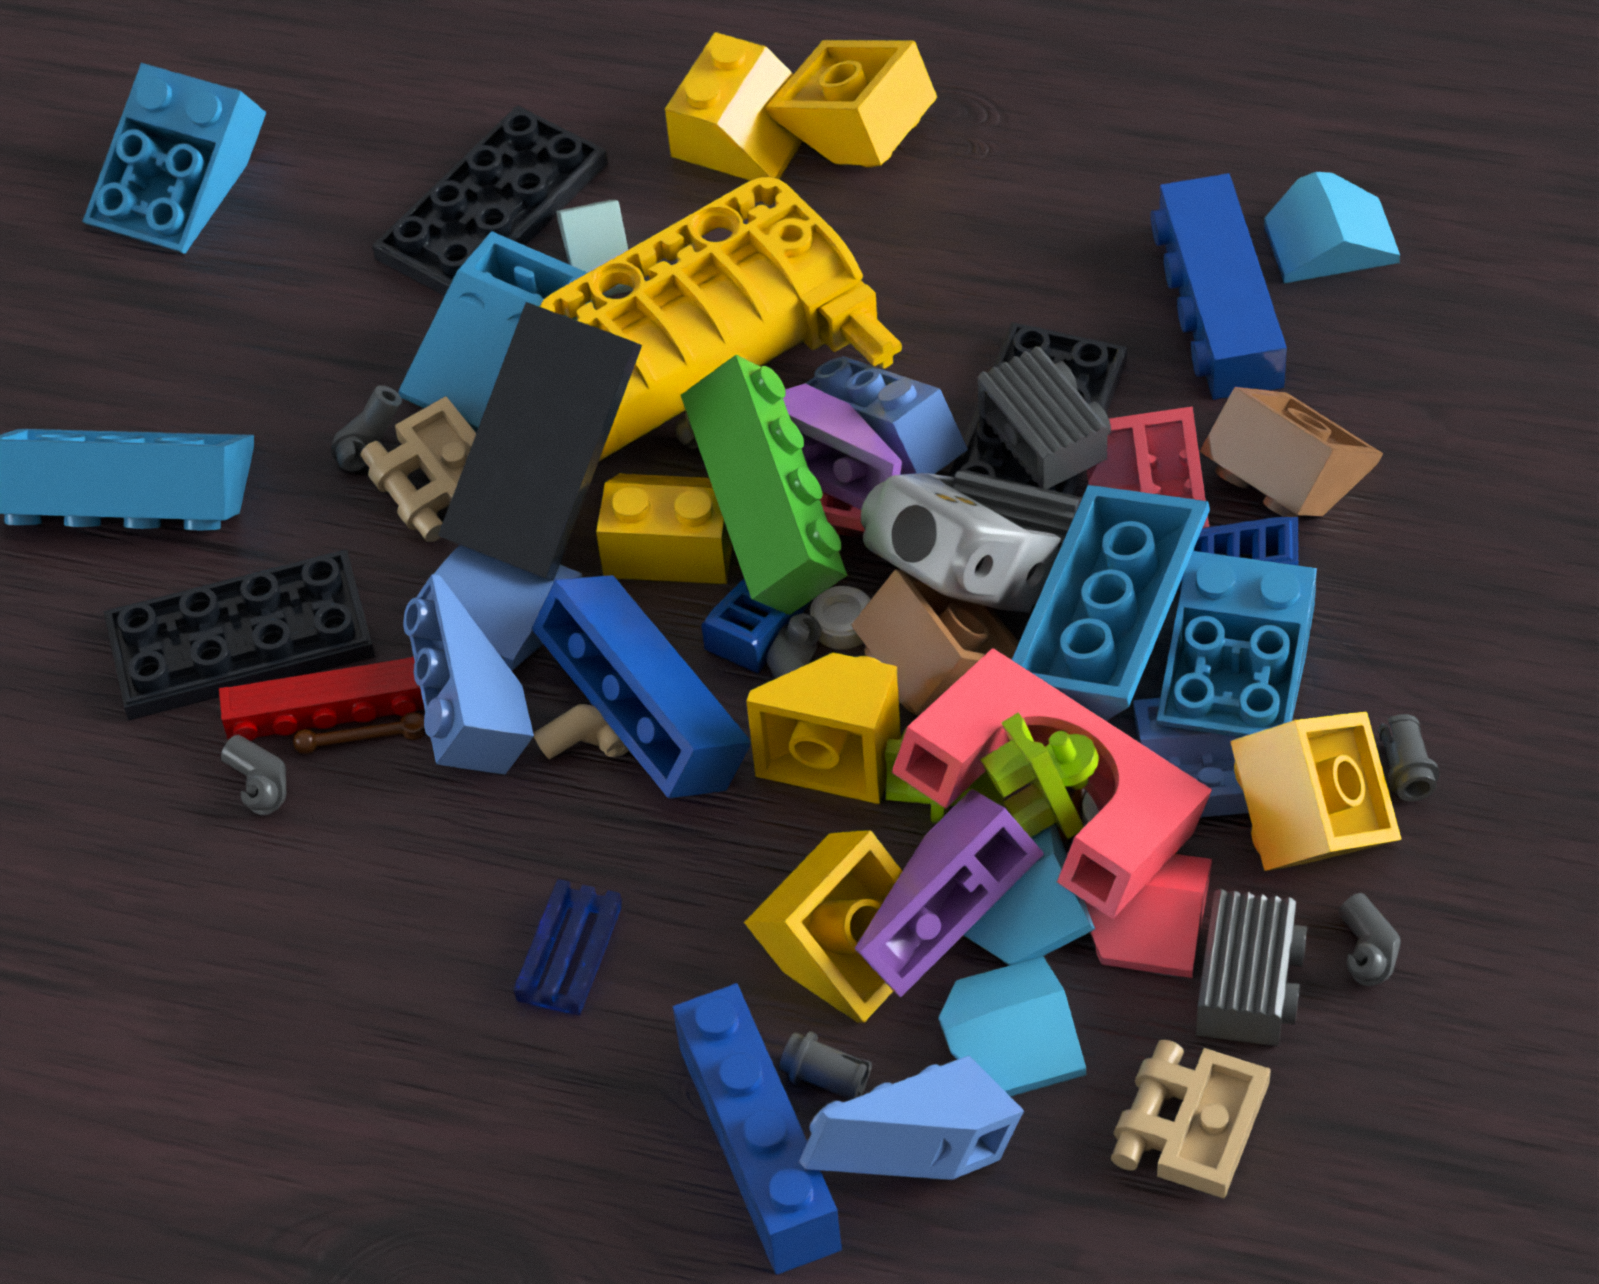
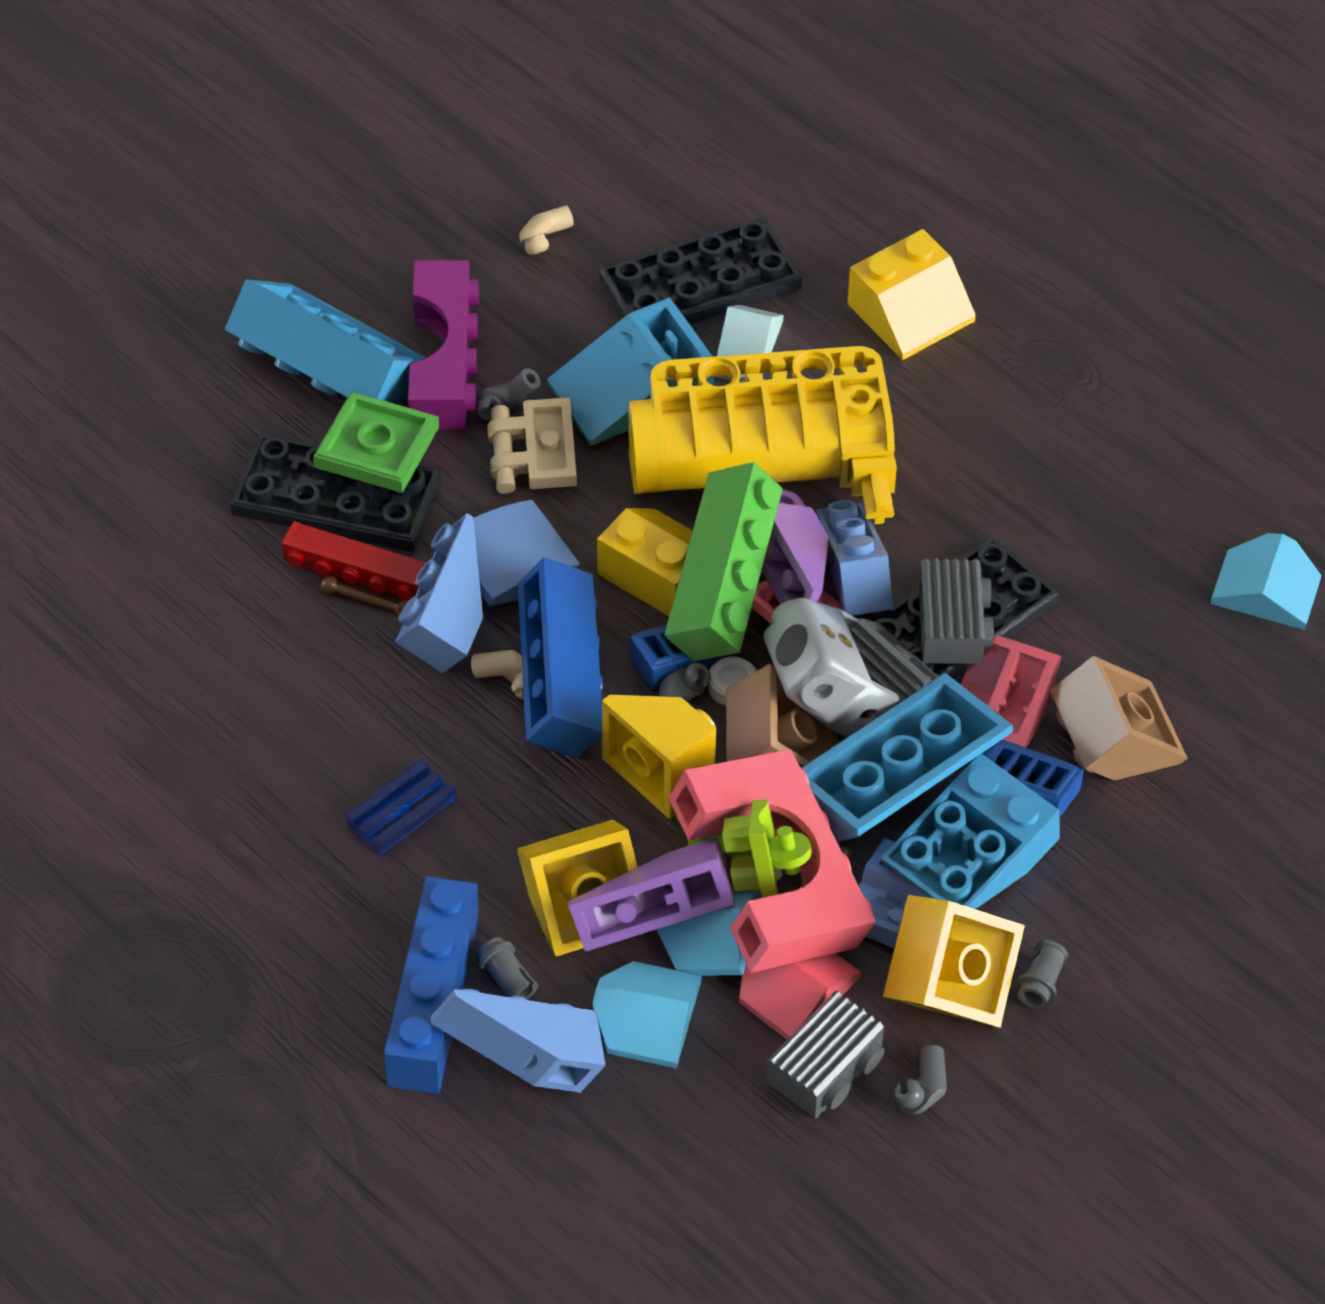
camera: 25 degrees right, 0 degrees up
(173, 158) = (508, 145): dark azure slope -> none
(259, 550) = (376, 442): none -> bright green plate
(264, 774) = (288, 594): dark grey arm -> none
(272, 226) = (543, 224): none -> tan arm
(282, 455) = (443, 306): none -> magenta arch
(540, 440) = (595, 457): black tile -> none
(855, 99) = (993, 324): yellow slope -> none
(1212, 1122) = (727, 1142): tan plate -> none
(1219, 286) = (1154, 582): blue brick -> none

